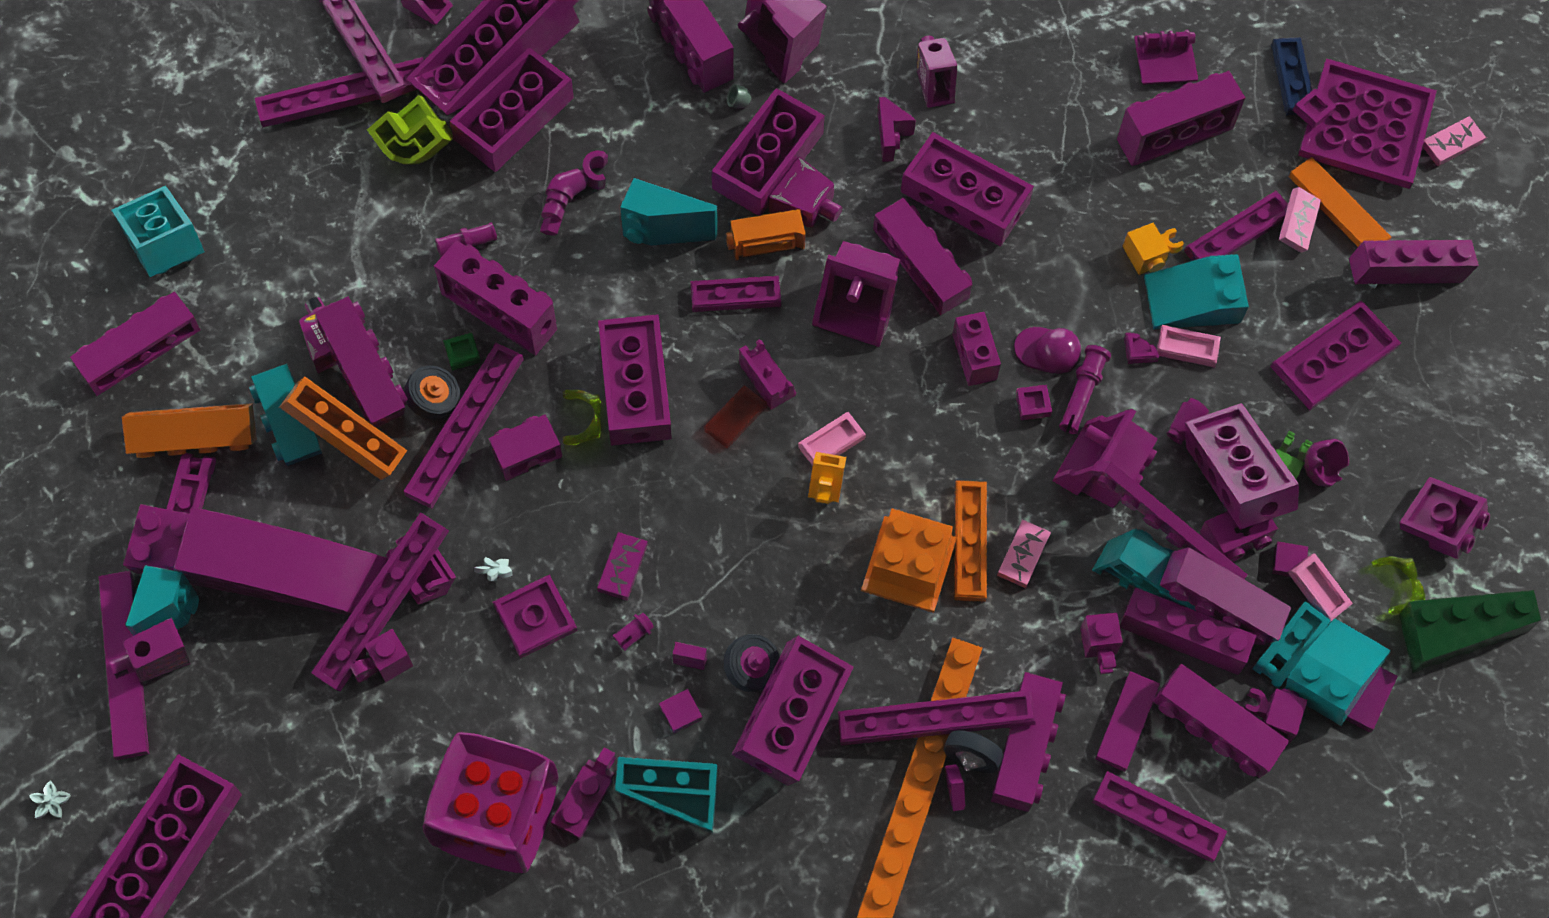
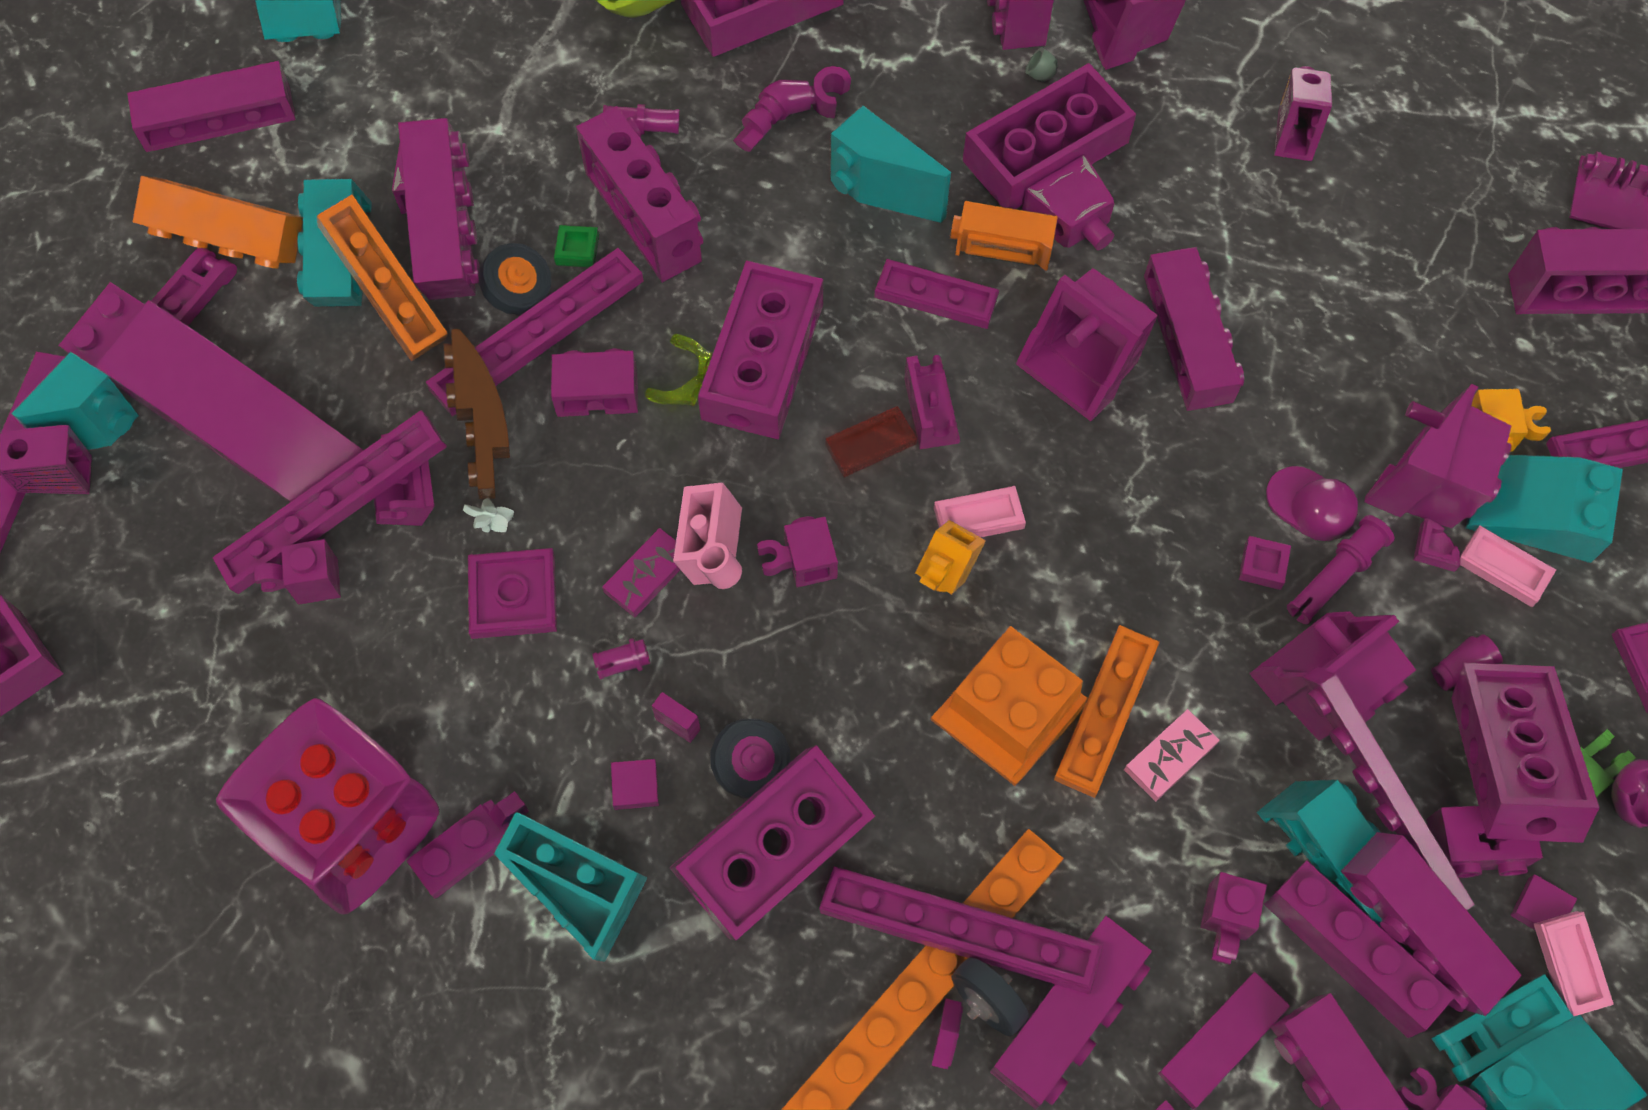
camera: 25 degrees right, 0 degrees up
(450, 488) = (477, 400): none -> reddish brown slope
(658, 525) = (709, 536): none -> bright pink hinge
(725, 509) = (806, 551): none -> magenta brick
(892, 124) = (1222, 158): magenta slope -> none
(966, 189) = (1284, 265): magenta brick -> none
(976, 348) = (1215, 466): magenta brick -> none
(1126, 292) = (1448, 465): none -> magenta piece

